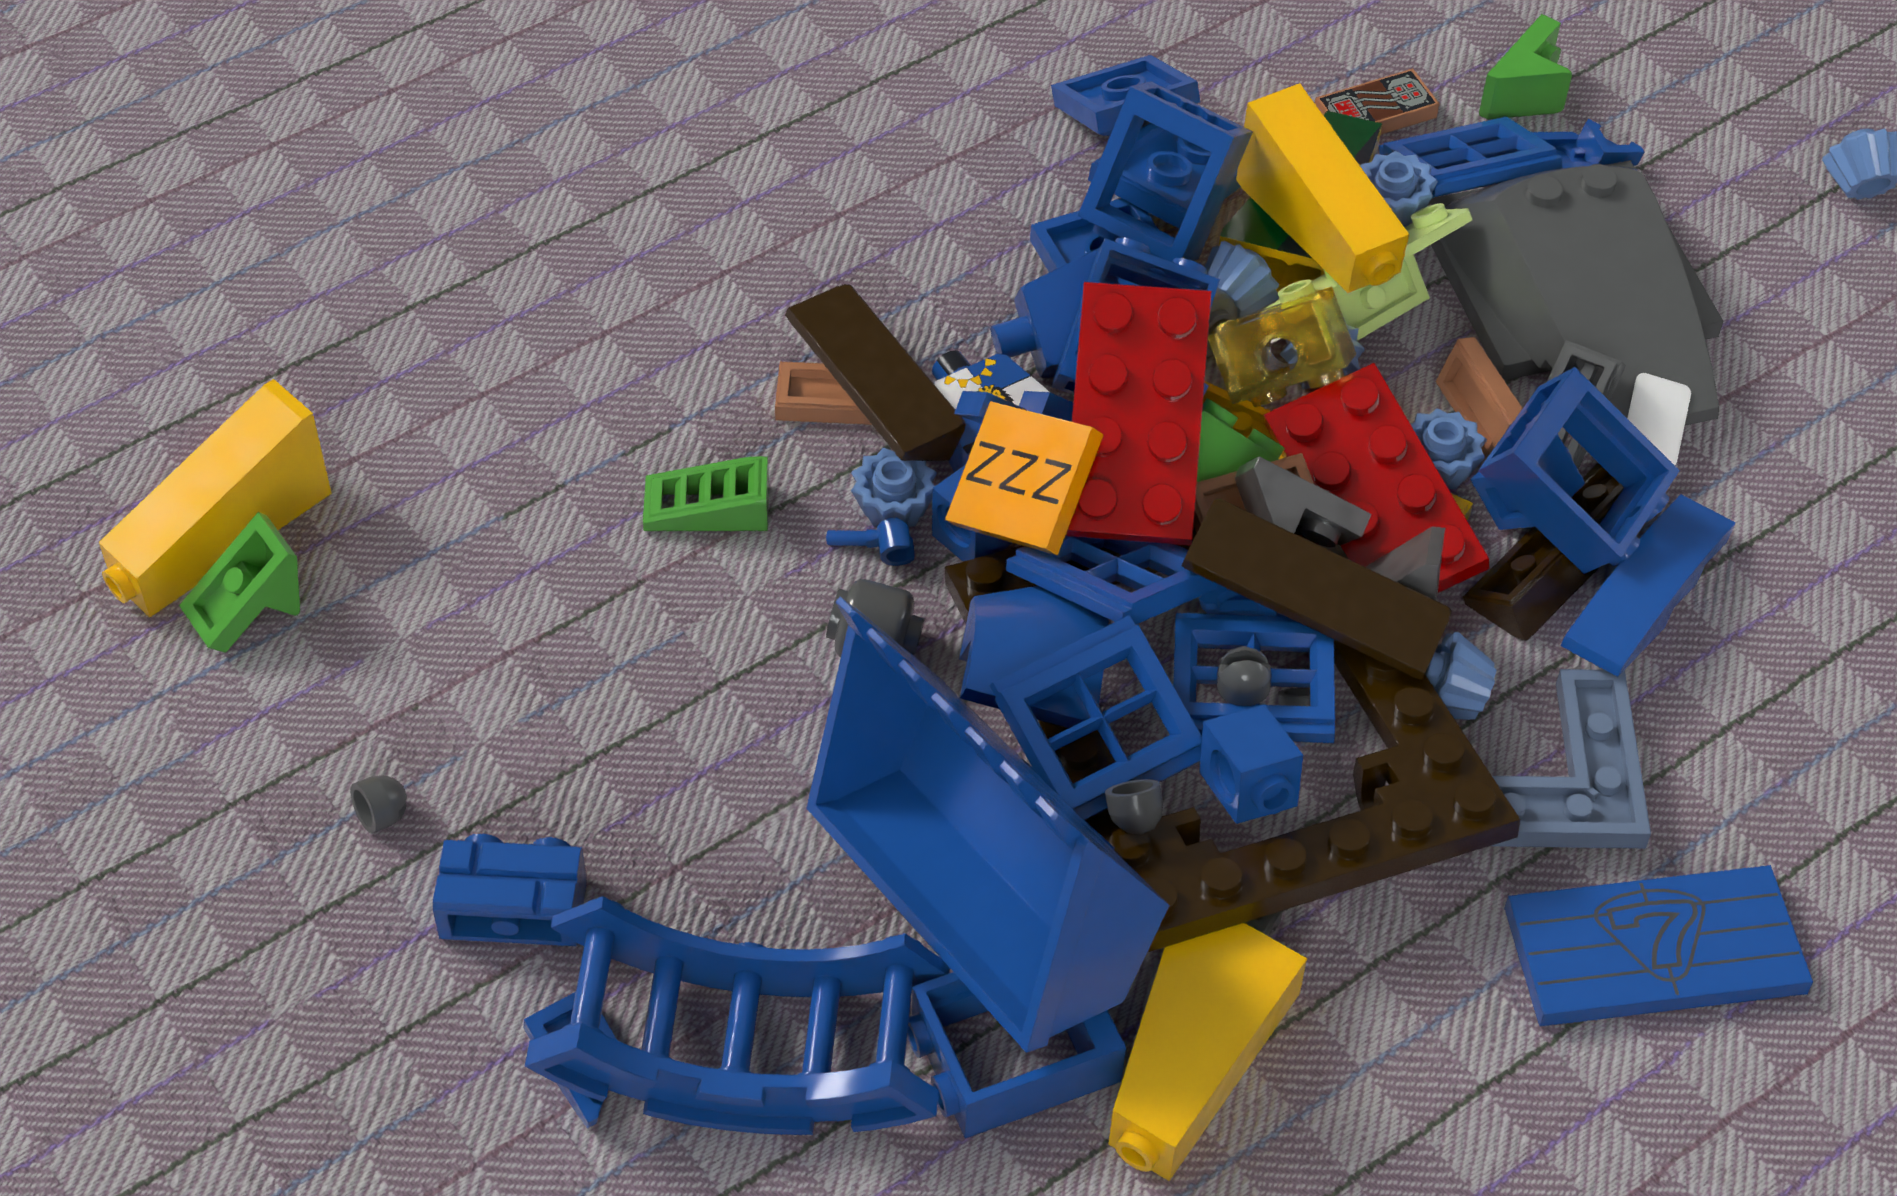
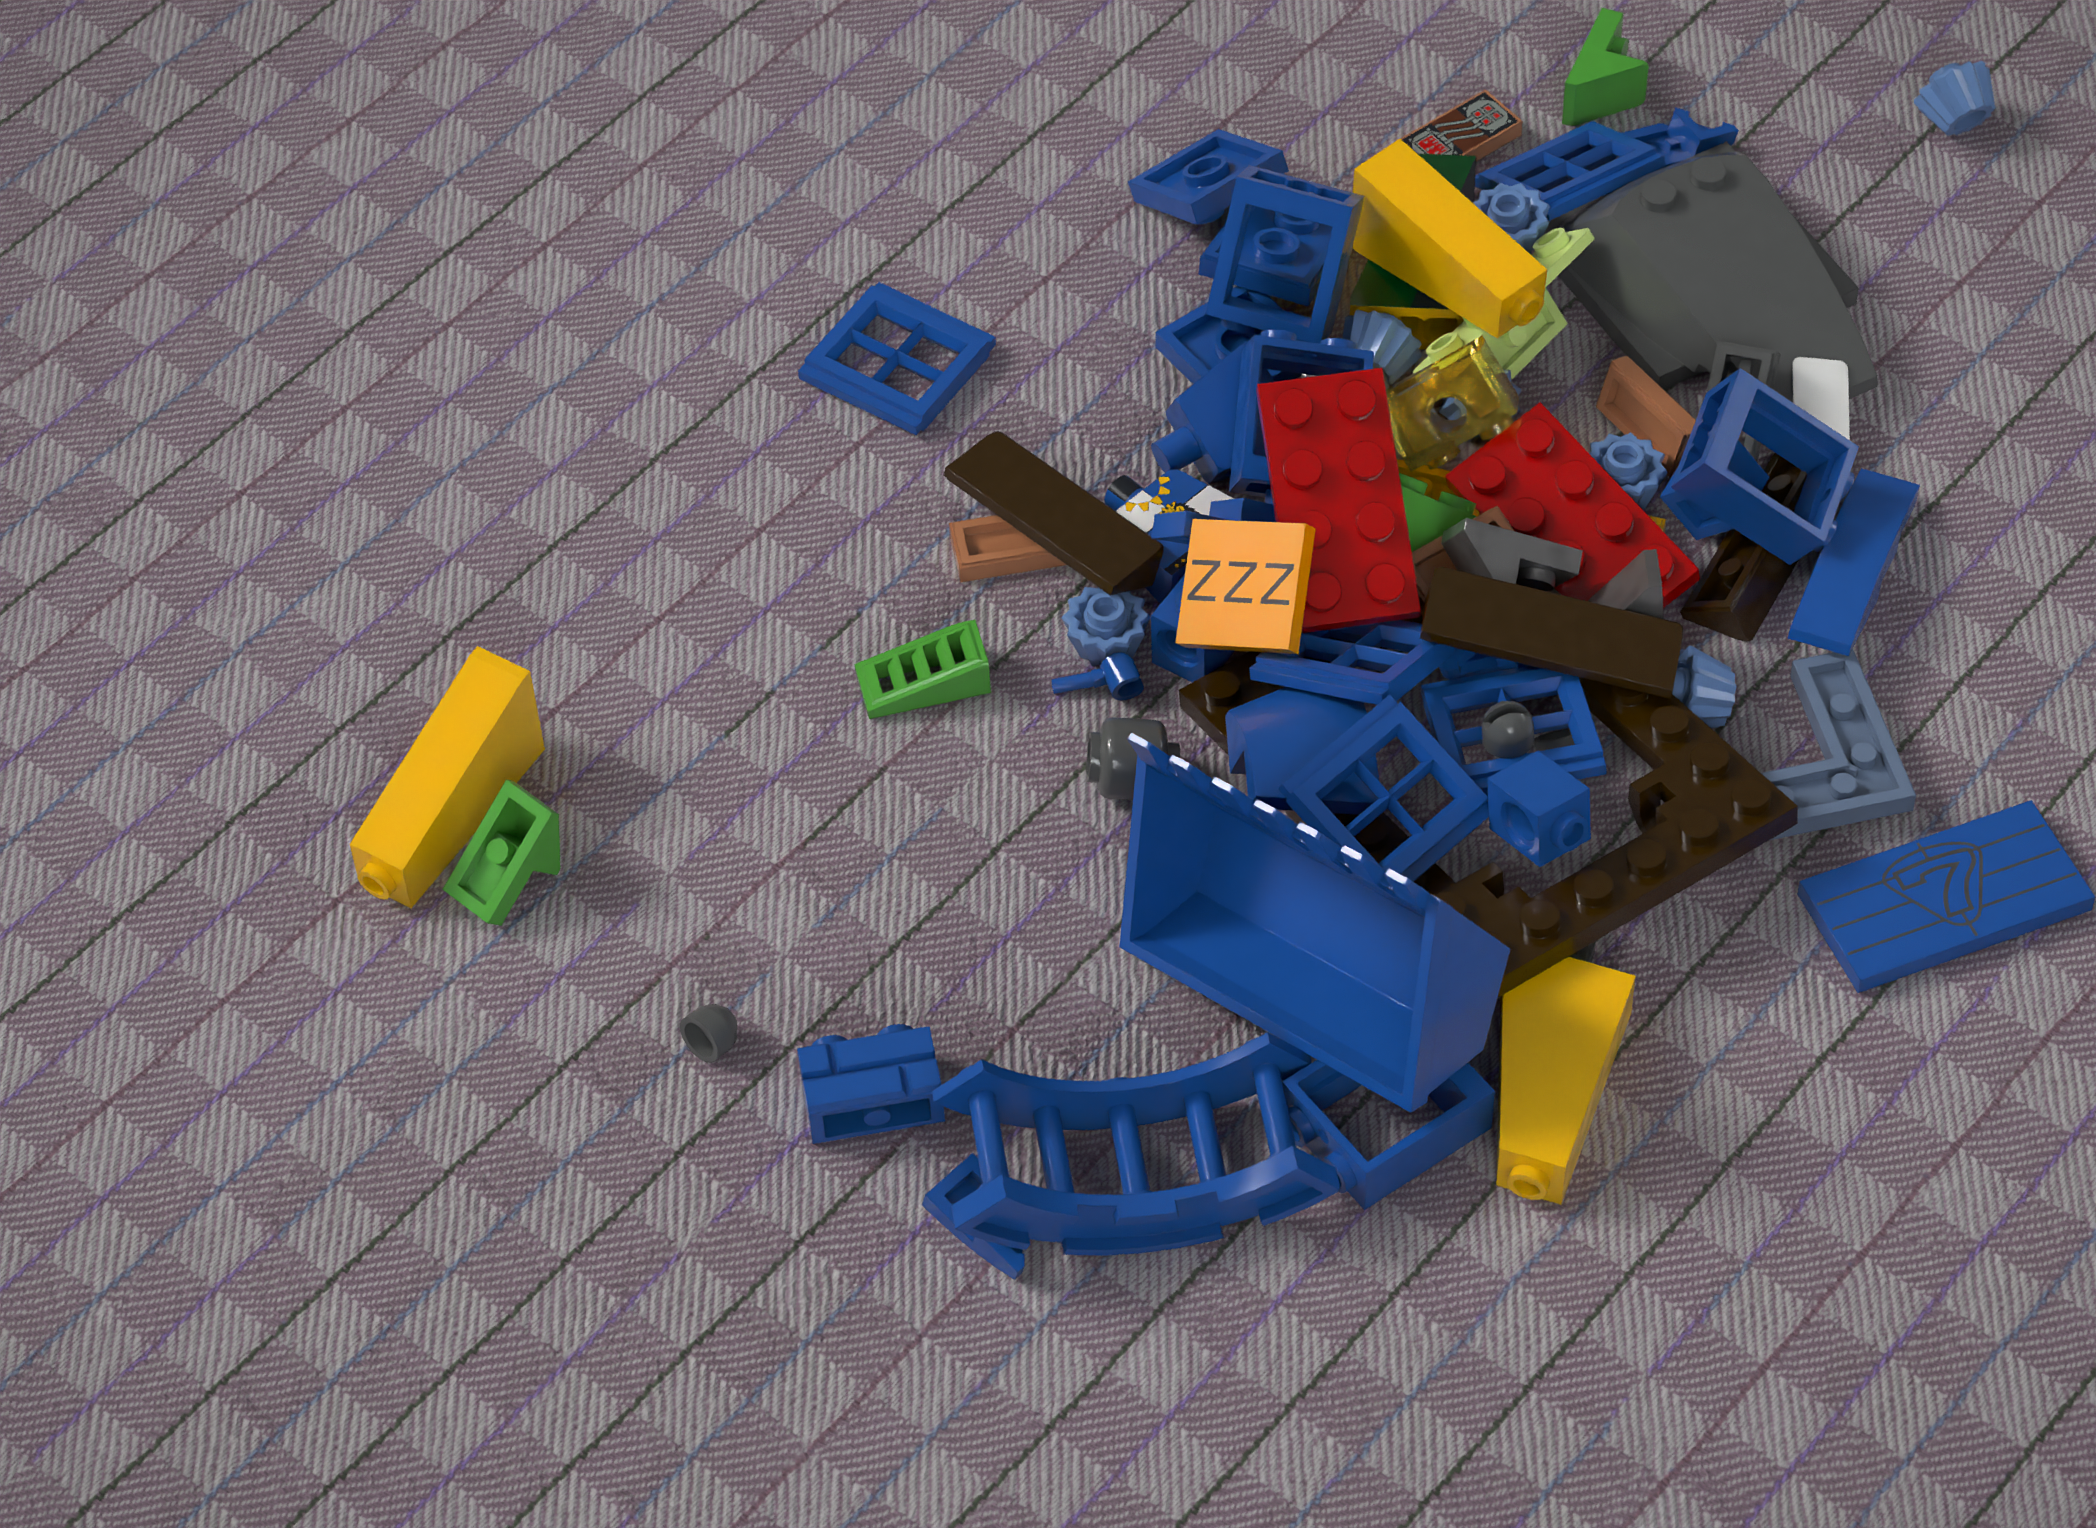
camera: 10 degrees left, 0 degrees up
(751, 229) = (870, 393): none -> blue piece
(1135, 805) = (1444, 870): dark grey hinge -> none

